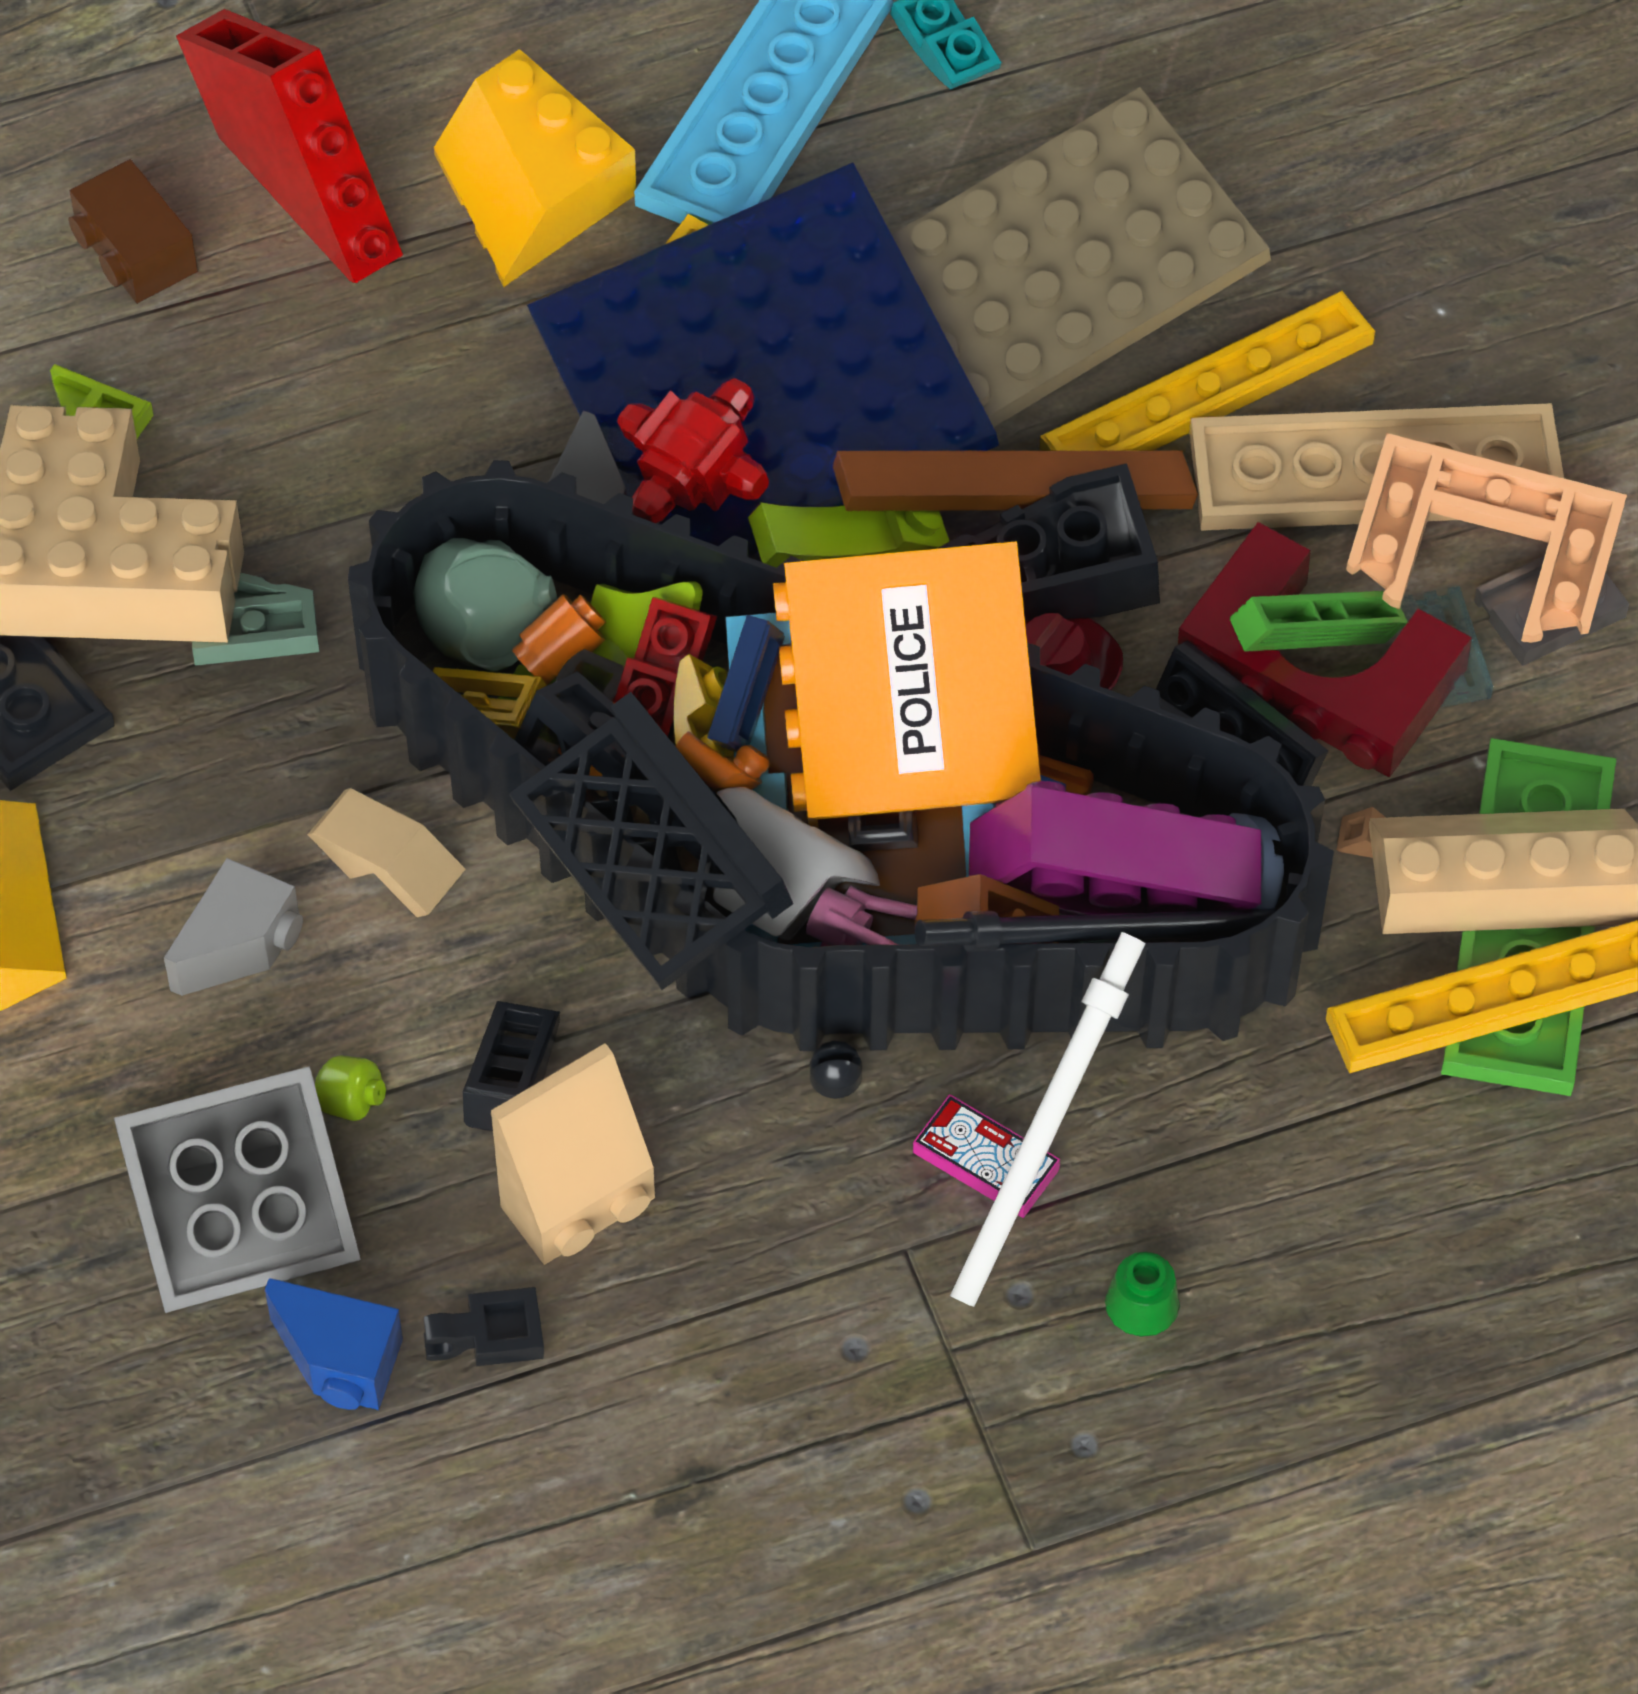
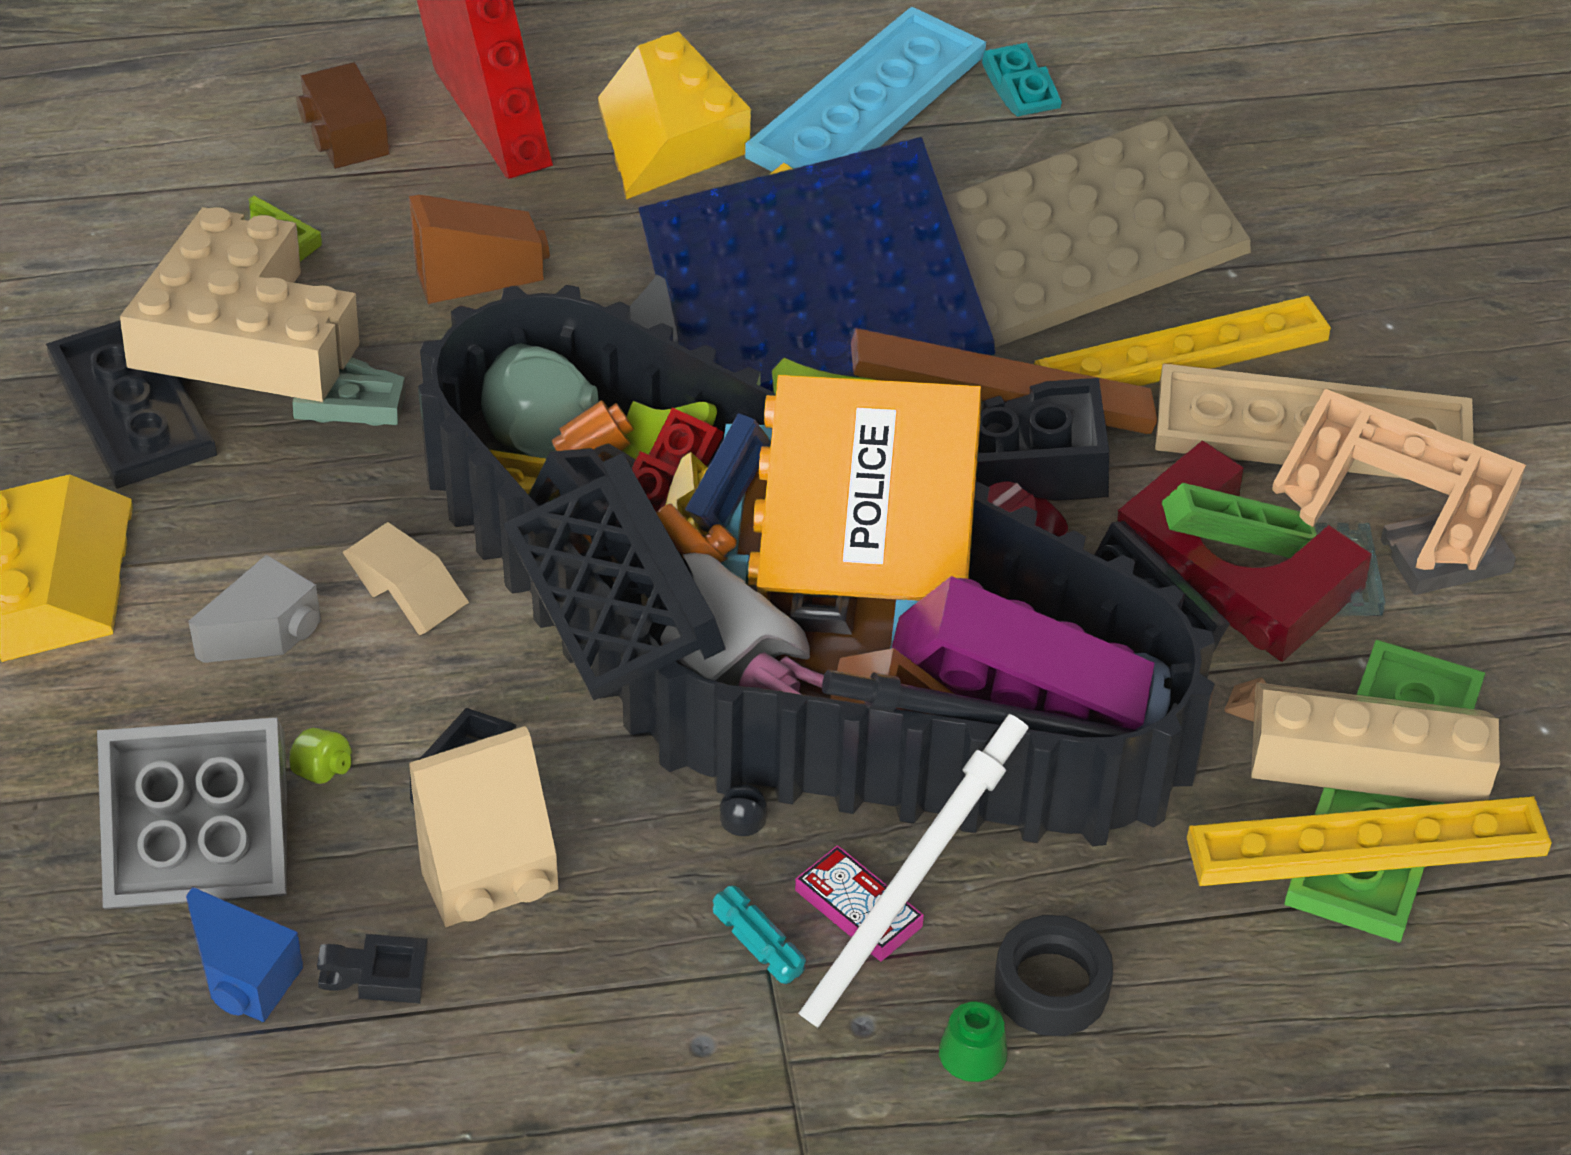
camera: 10 degrees right, 10 degrees down
(347, 400) = (473, 247): none -> dark orange slope
(693, 451) = (740, 312): red piece -> none
(887, 1212) = (759, 934): none -> teal axle
(1222, 1159) = (1050, 1013): none -> black tyre

